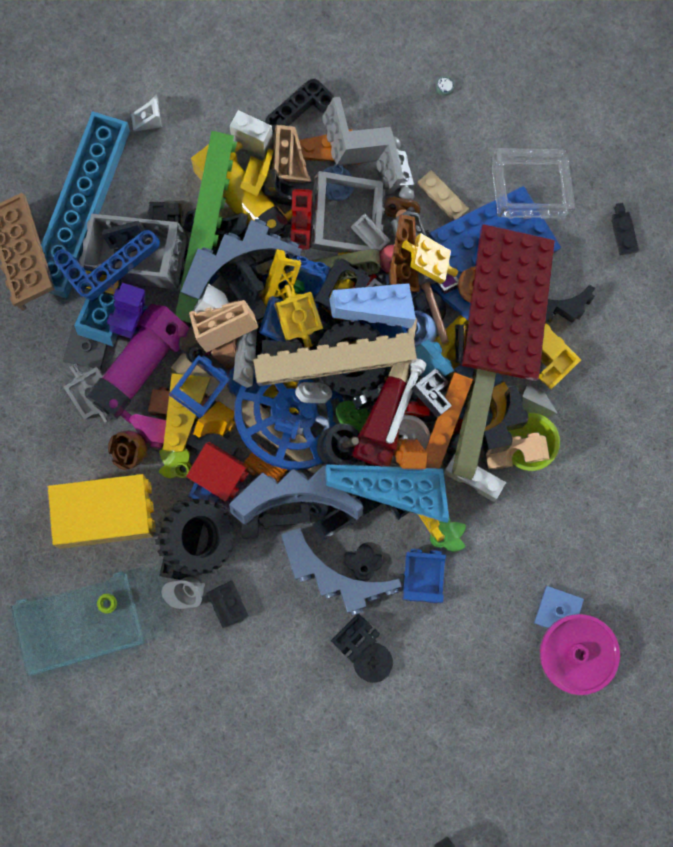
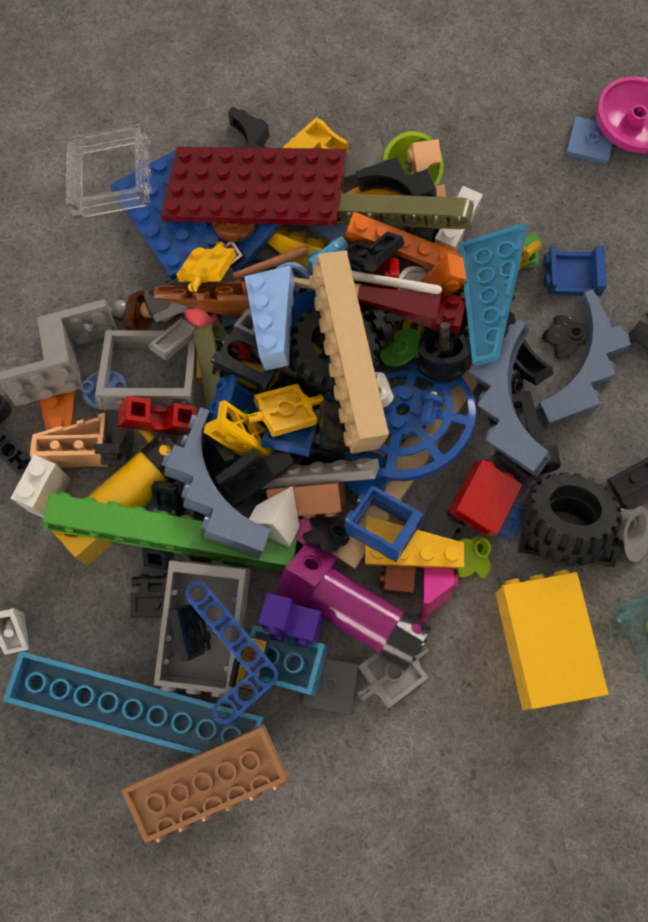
camera: 85 degrees left, 5 degrees down
(127, 449) = (465, 615): reddish brown cylinder -> none
(216, 420) = (421, 499): light orange arch -> none
(223, 324) = (304, 496): light nougat wedge -> none
(256, 173) = (96, 470): yellow fence -> none
(258, 466) = (476, 446): orange brick -> none
(442, 196) = (120, 271): tan plate -> none
(460, 336) = (307, 233): black slope -> none
(624, 230) = (160, 87): black hinge -> none

